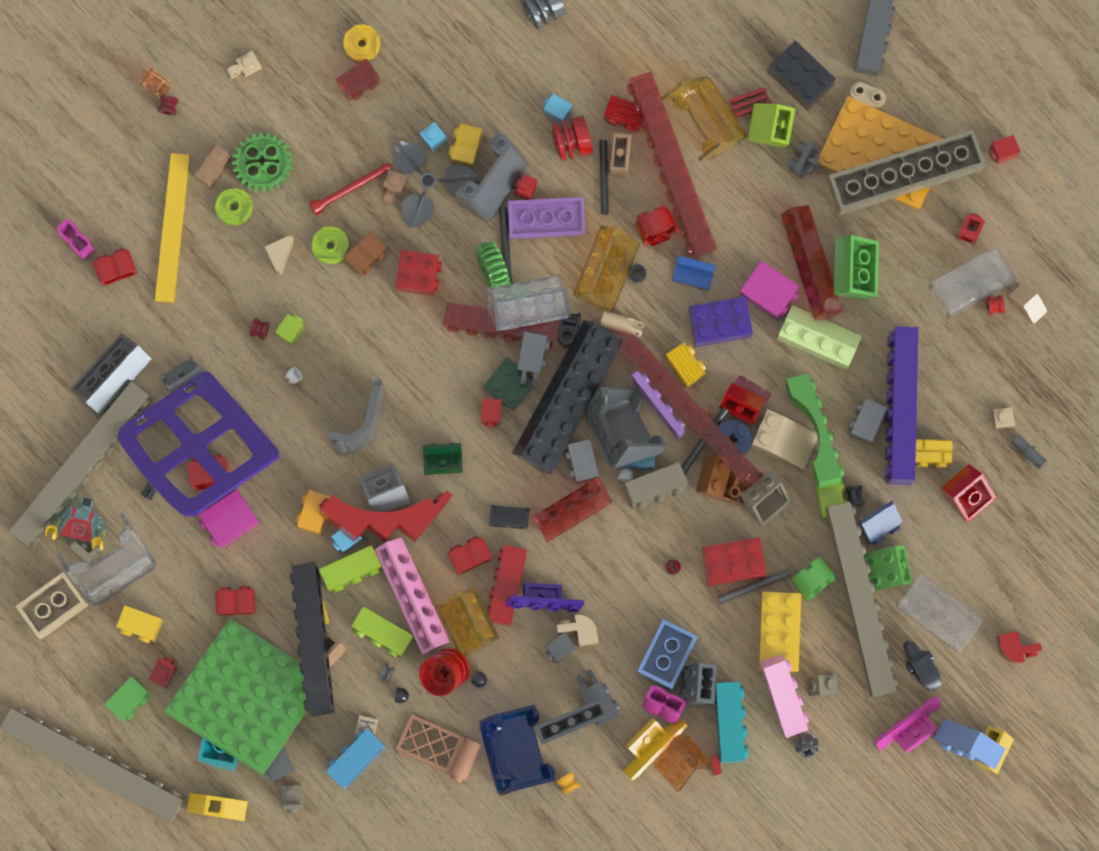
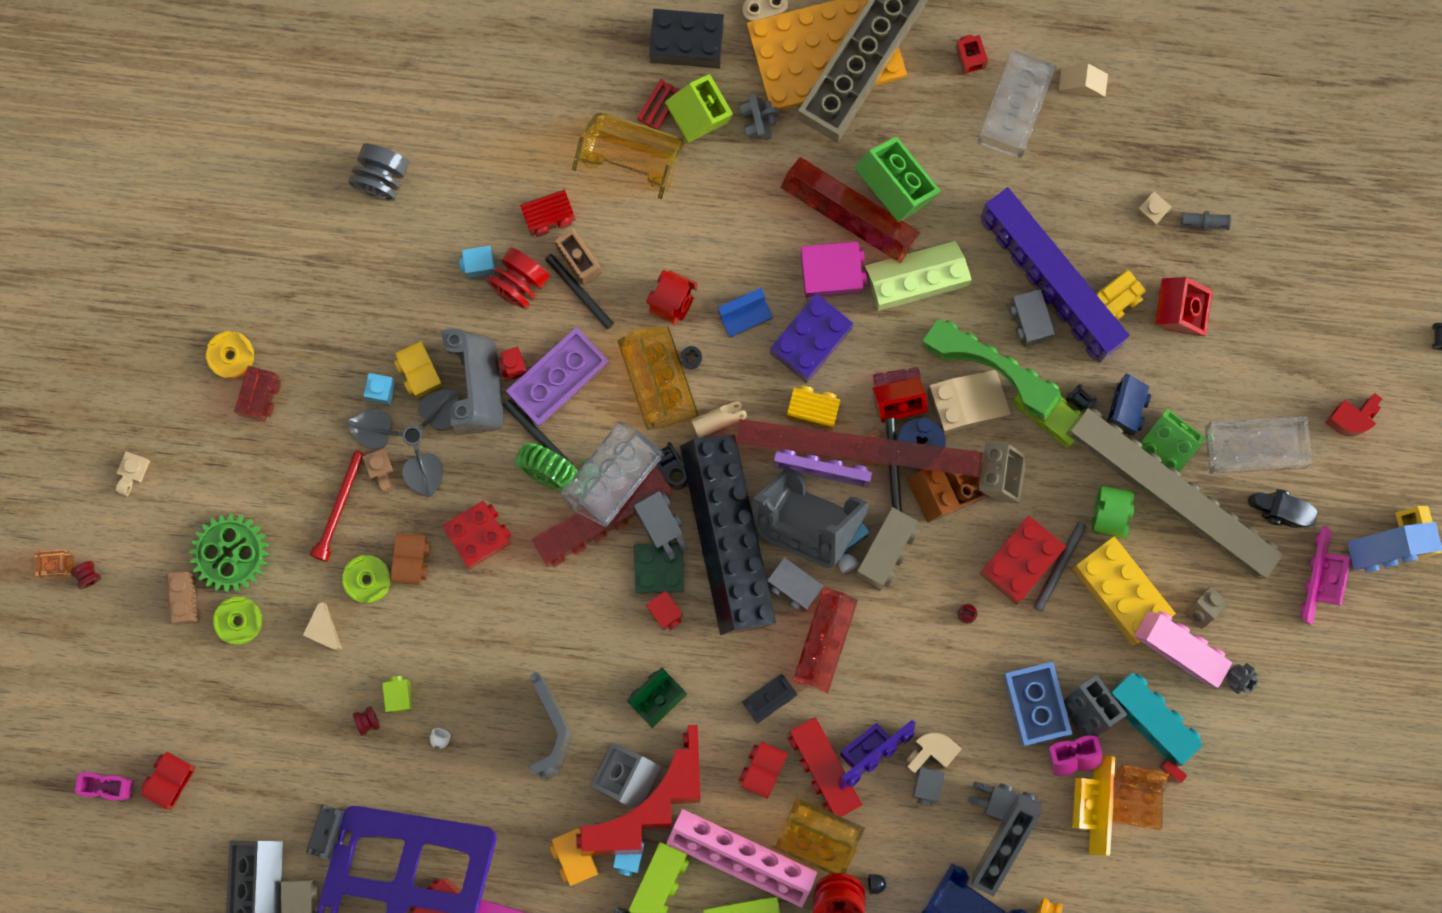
camera: 40 degrees left, 0 degrees up
(172, 228) = (193, 693): yellow tile -> none
(671, 165) = (636, 225): clear red brick -> none
(995, 305) = (1055, 107): red wheel -> none

